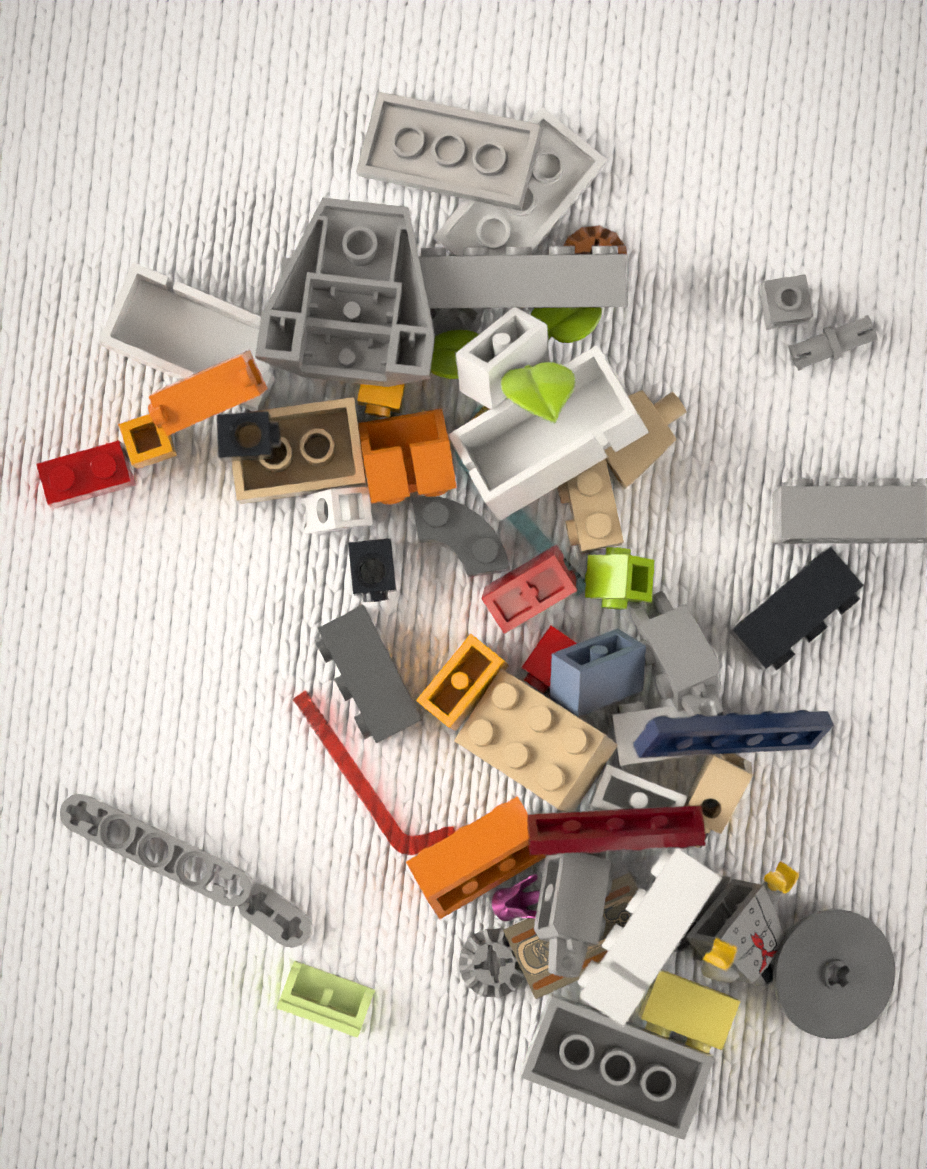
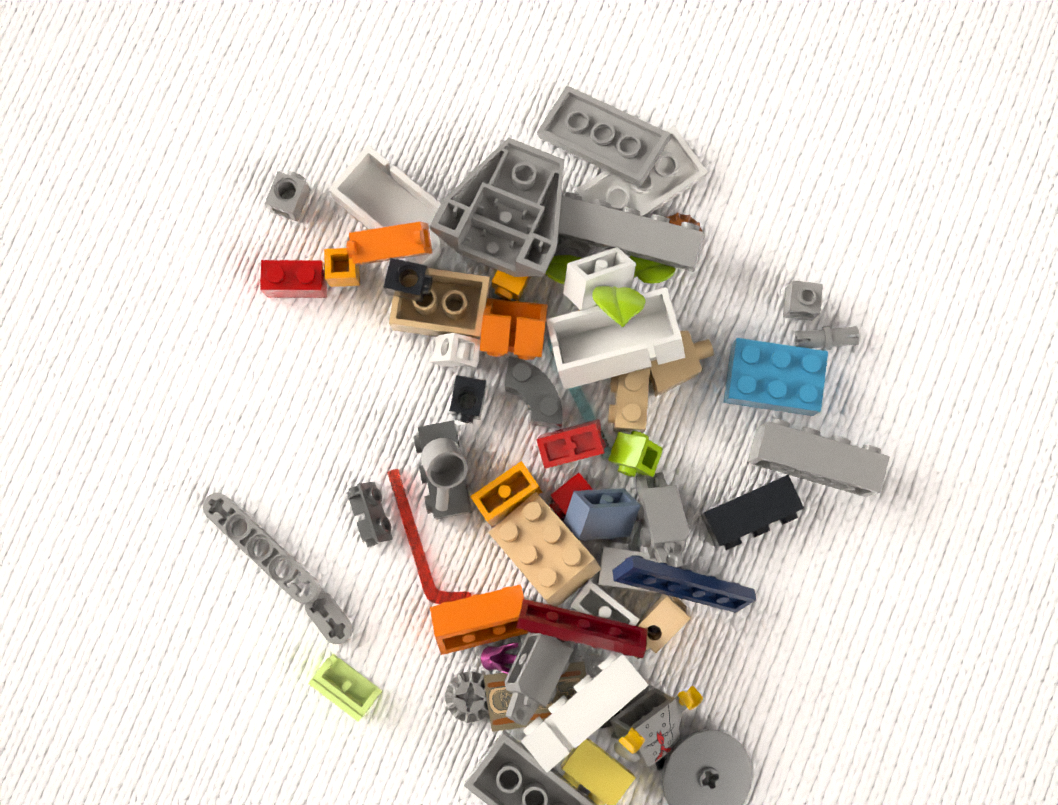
camera: 20 degrees right, 5 degrees down
(46, 378) = (291, 207): none -> light grey brick
(279, 744) = (367, 500): none -> dark grey hinge
(371, 673) = (444, 468): none -> light grey piece
(778, 418) = (775, 377): none -> dark azure brick

